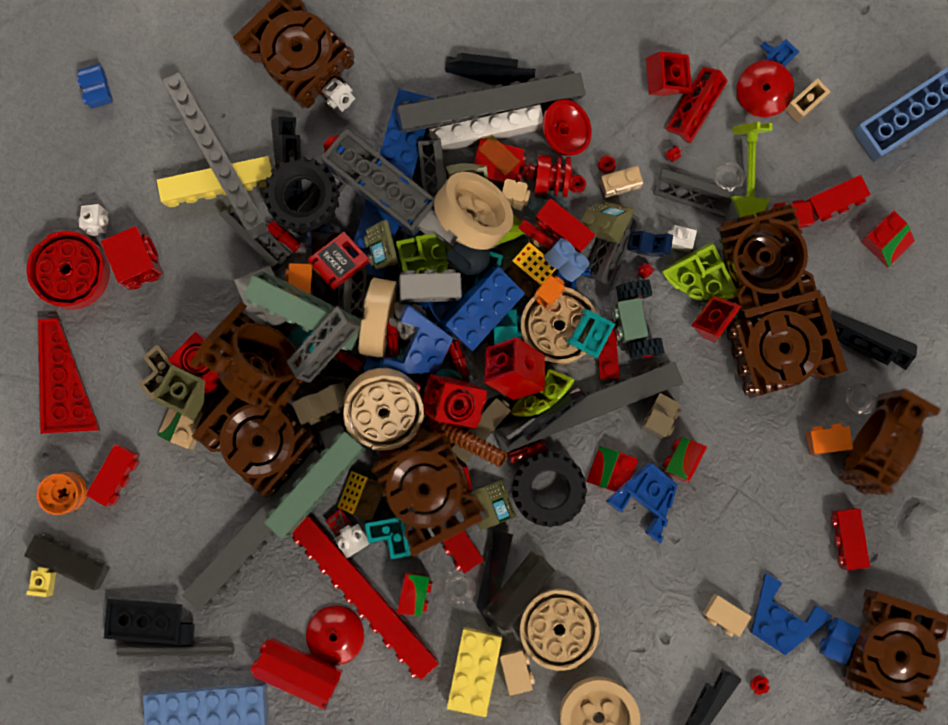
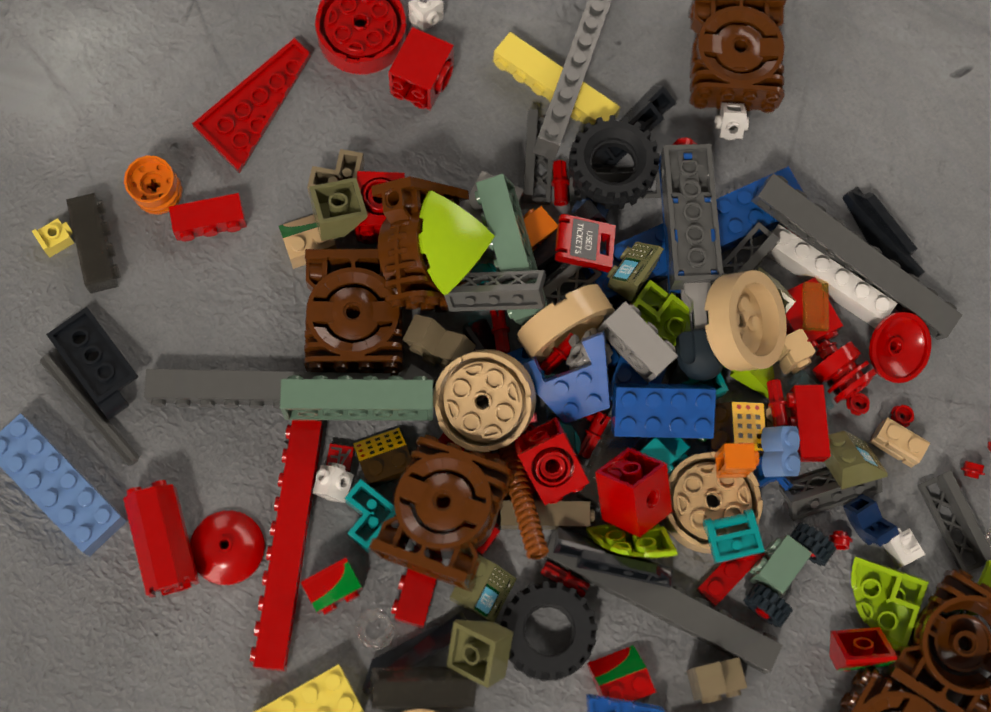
camera: 40 degrees right, 10 degrees down
(268, 346) = (450, 240): none -> lime brick
(527, 541) = (480, 651): none -> olive slope

